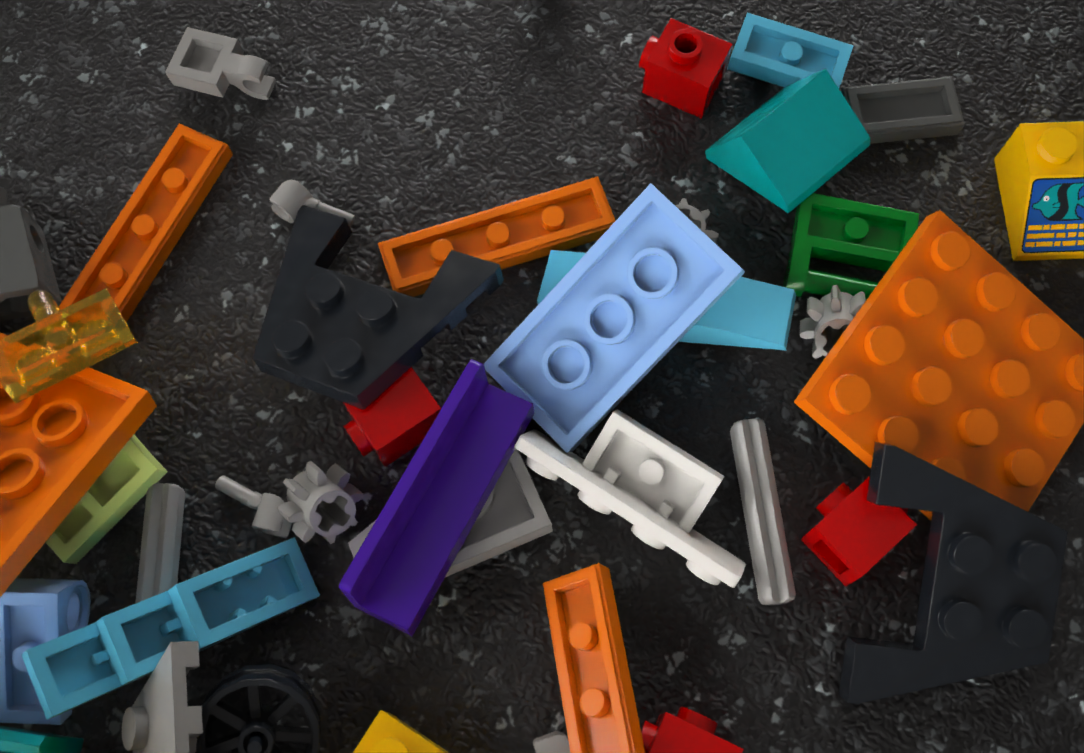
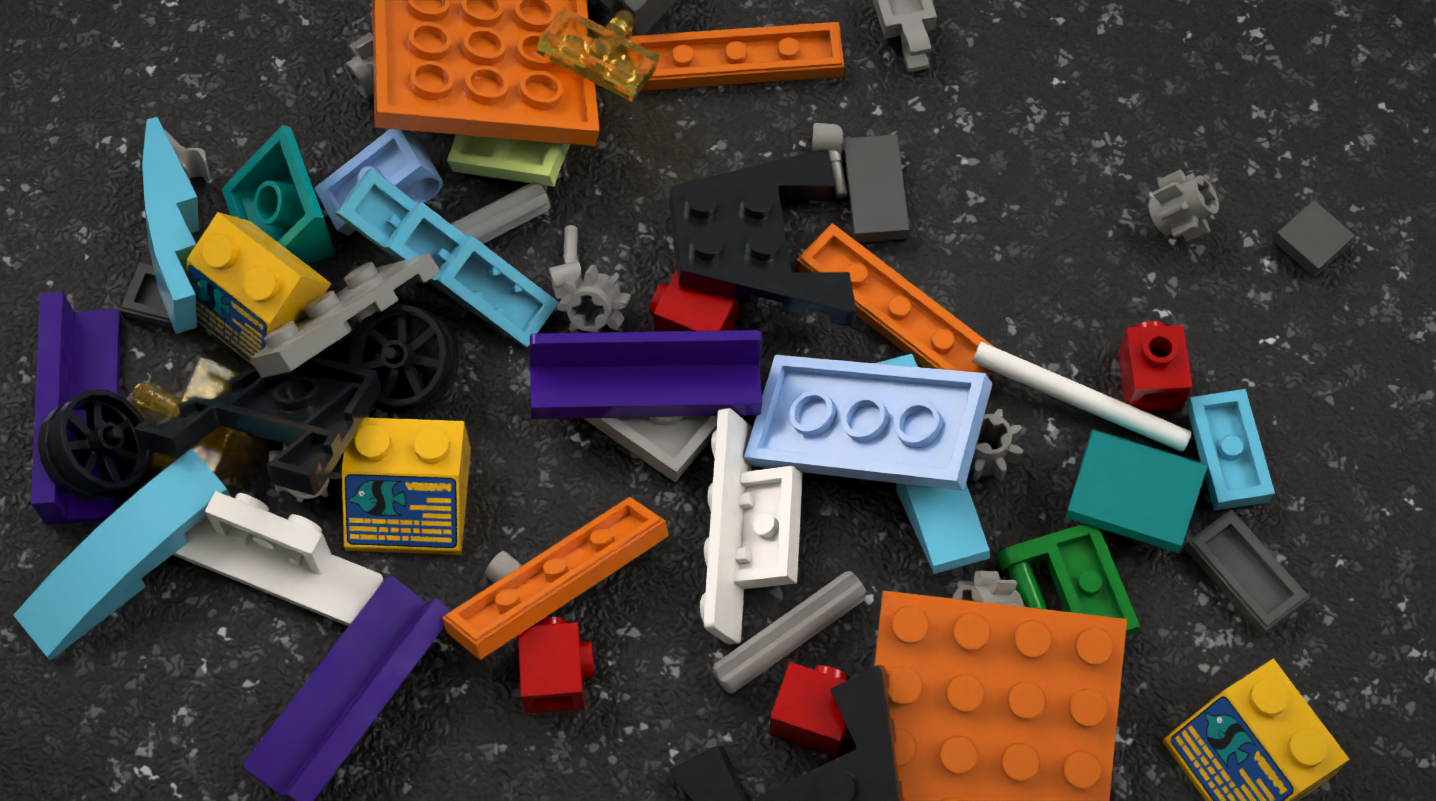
camera: 60 degrees right, 5 degrees down
(366, 188) = (875, 188): none -> dark grey tile
(673, 140) = (1081, 396): none -> white bar

